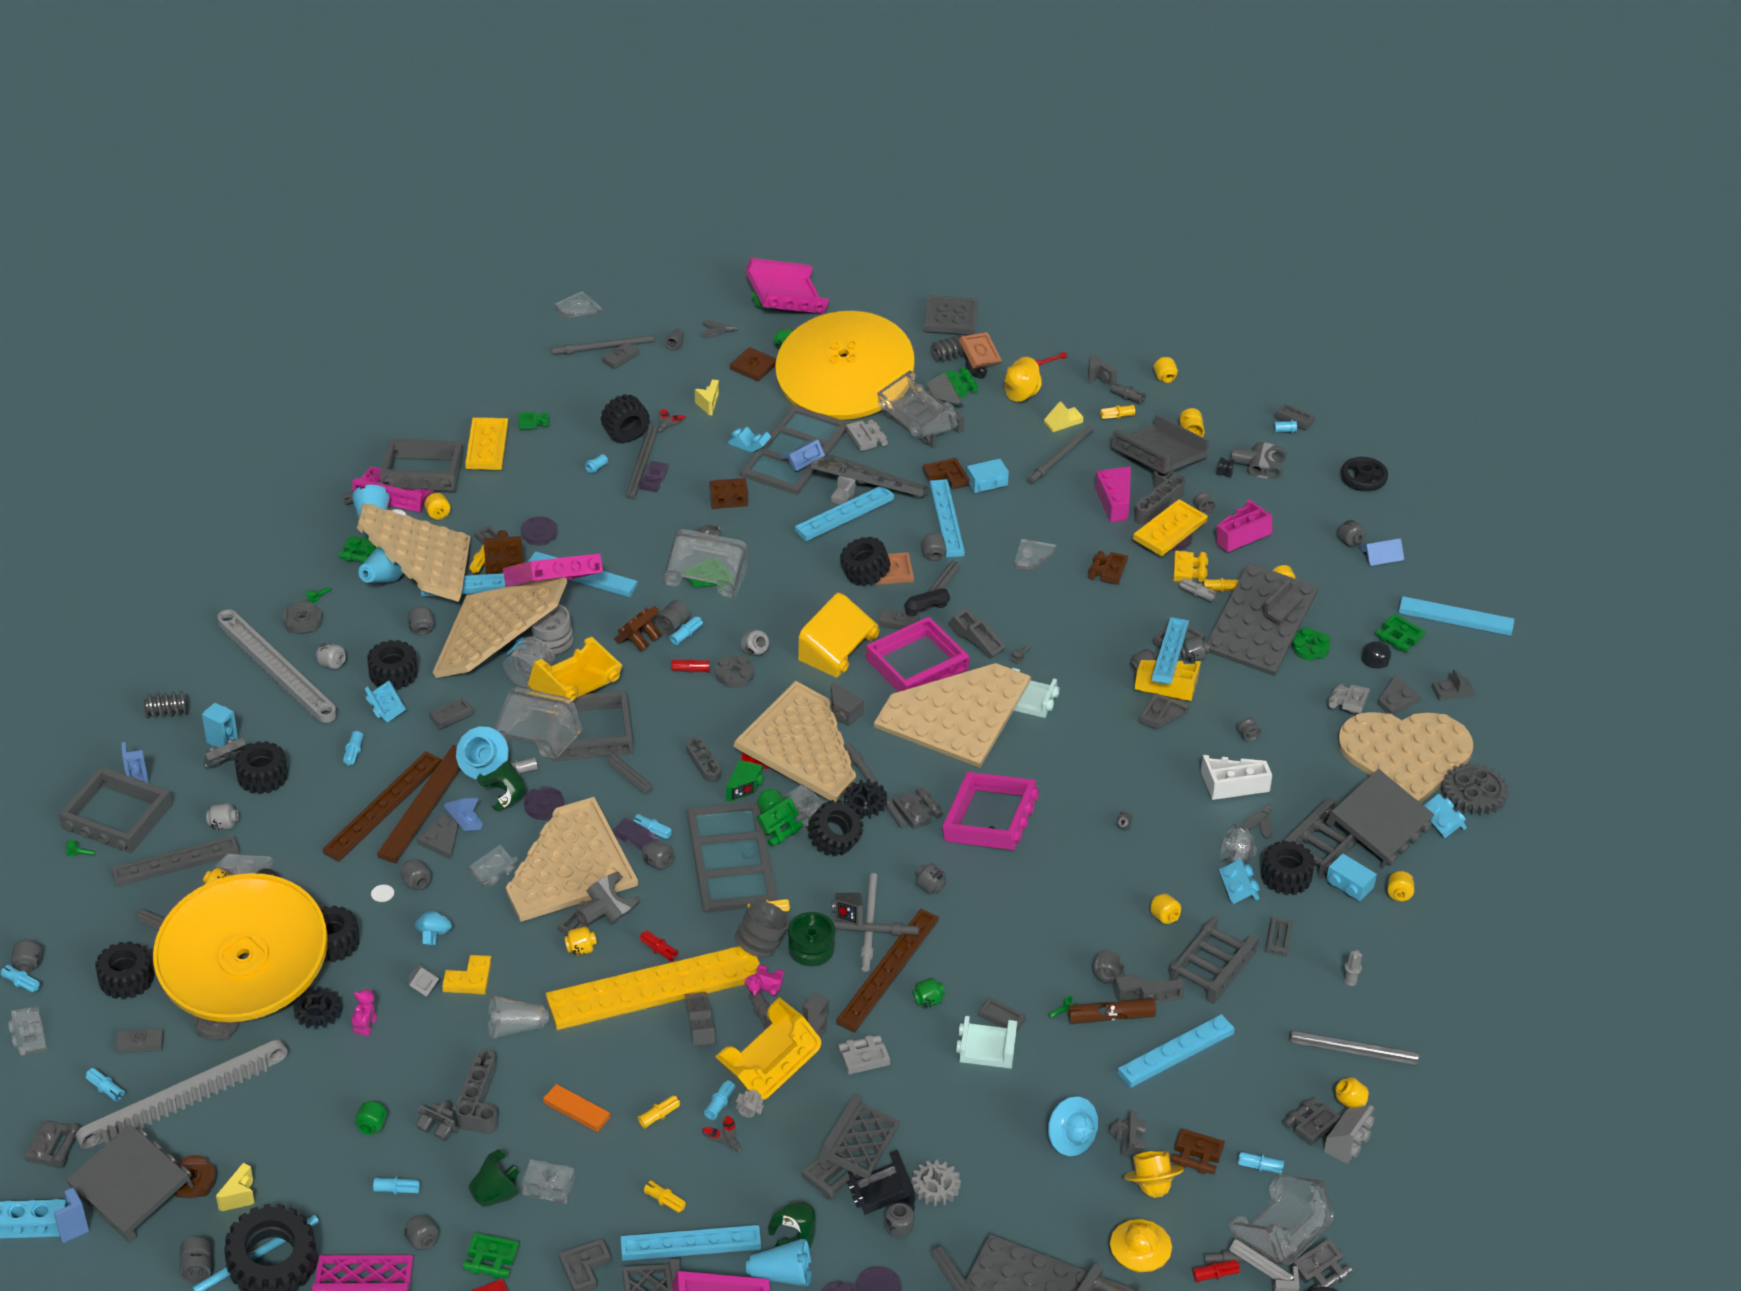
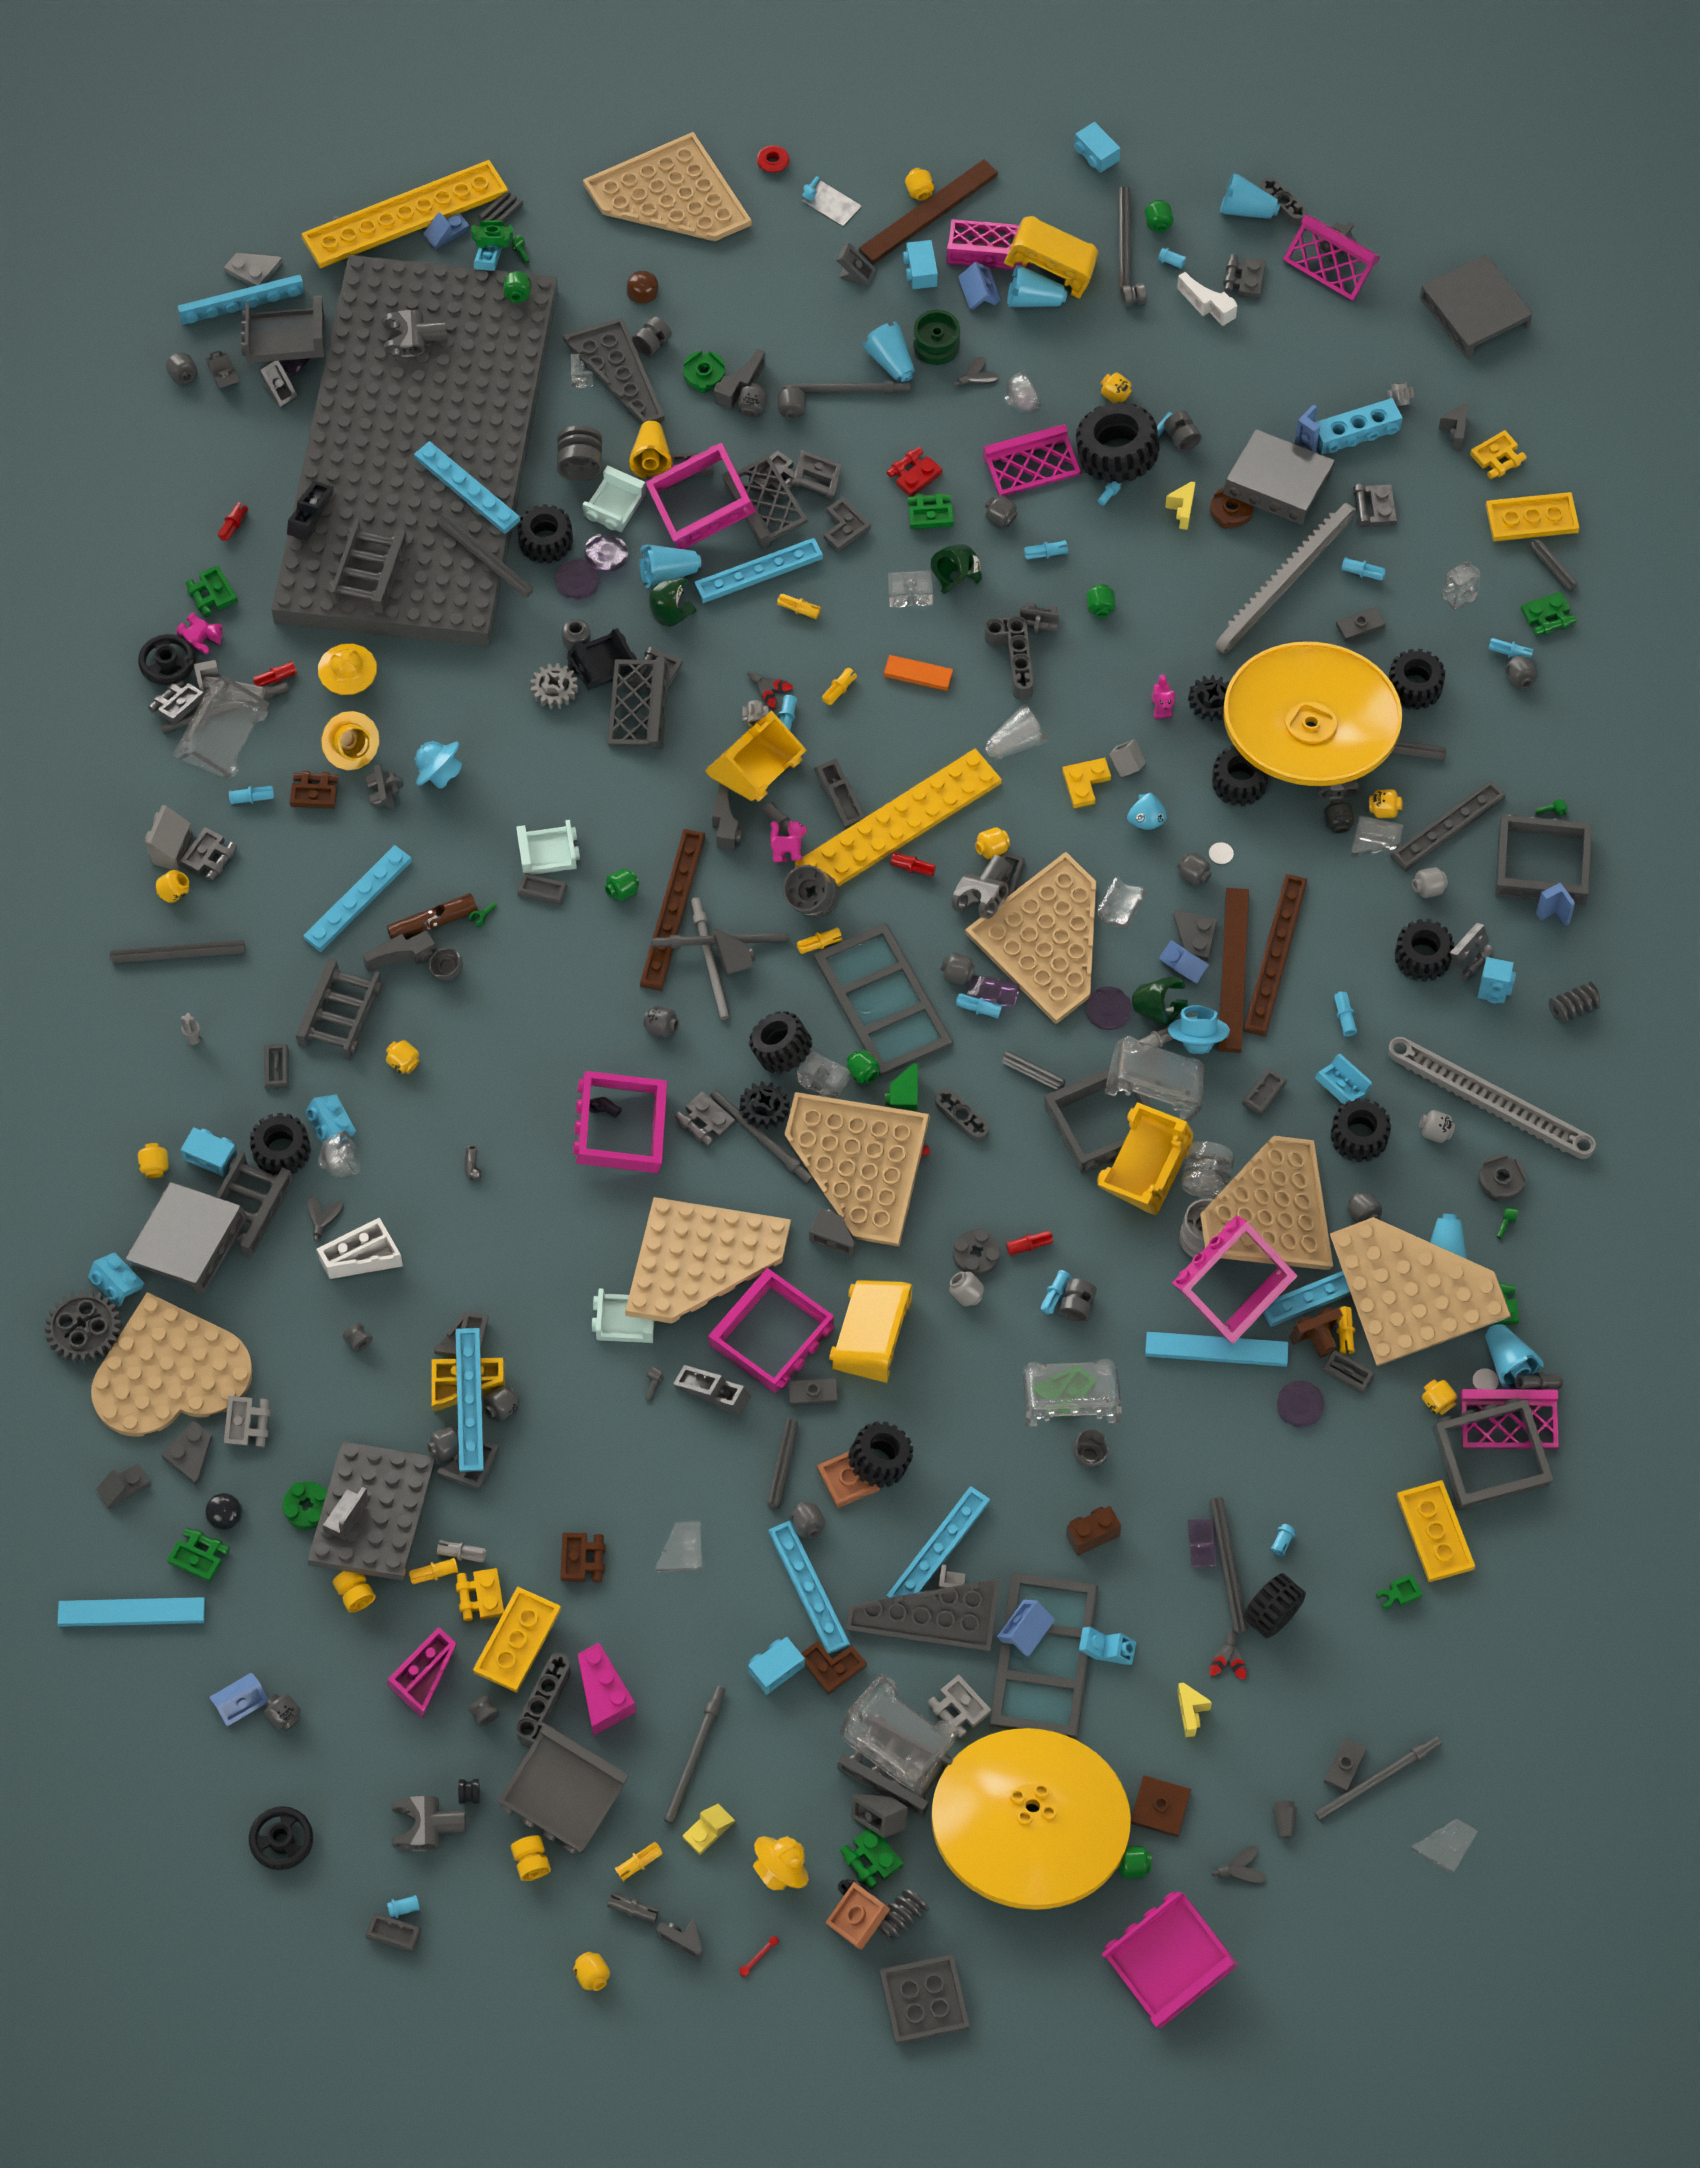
camera: 165 degrees right, 20 degrees up
(642, 621) = (1109, 1267): reddish brown plate -> none
(776, 816) = (845, 1040): green plate -> none
(811, 939) = (759, 905): dark green wheel -> none
(865, 1058) = (662, 797): light grey plate -> none
(938, 597) = (785, 1415): black piece -> none

